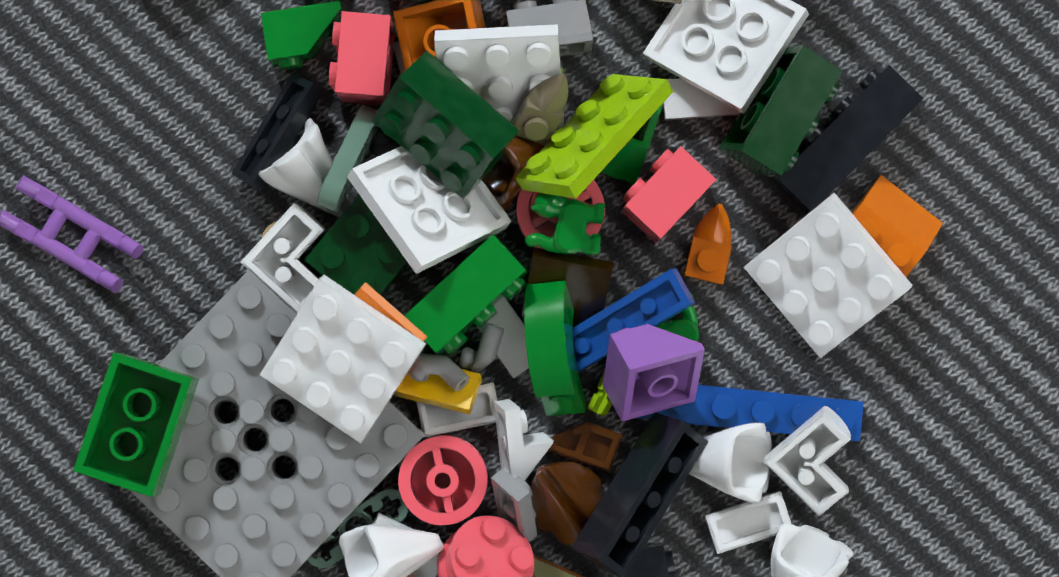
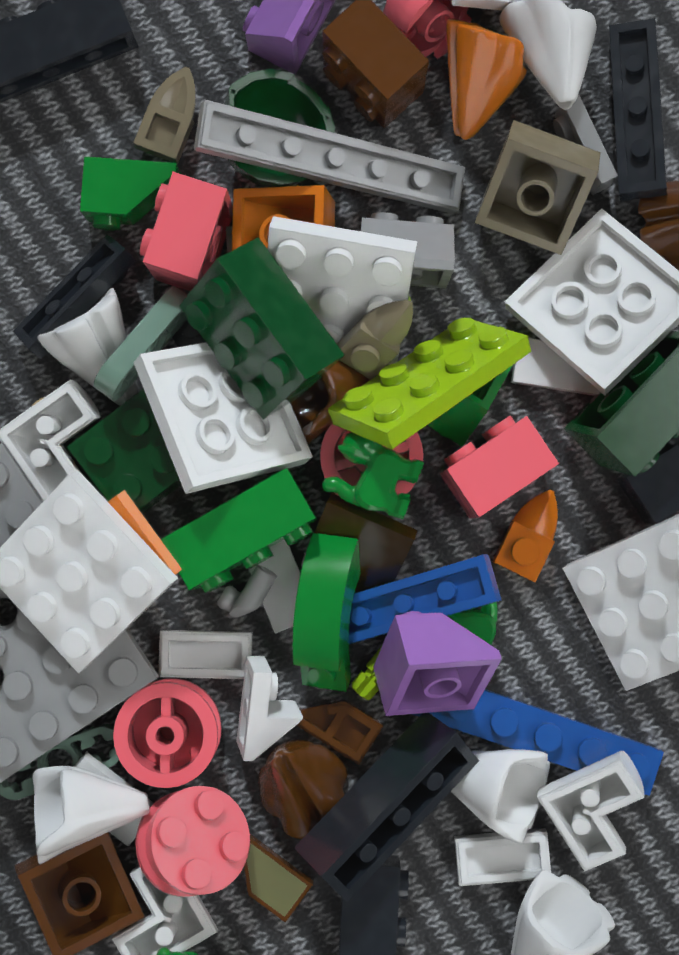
camera: 10 degrees right, 0 degrees up
(438, 393) = (190, 624): yellow tile -> none
(441, 366) = (193, 601): light grey arm -> none
(515, 502) = (241, 779): light grey plate -> none

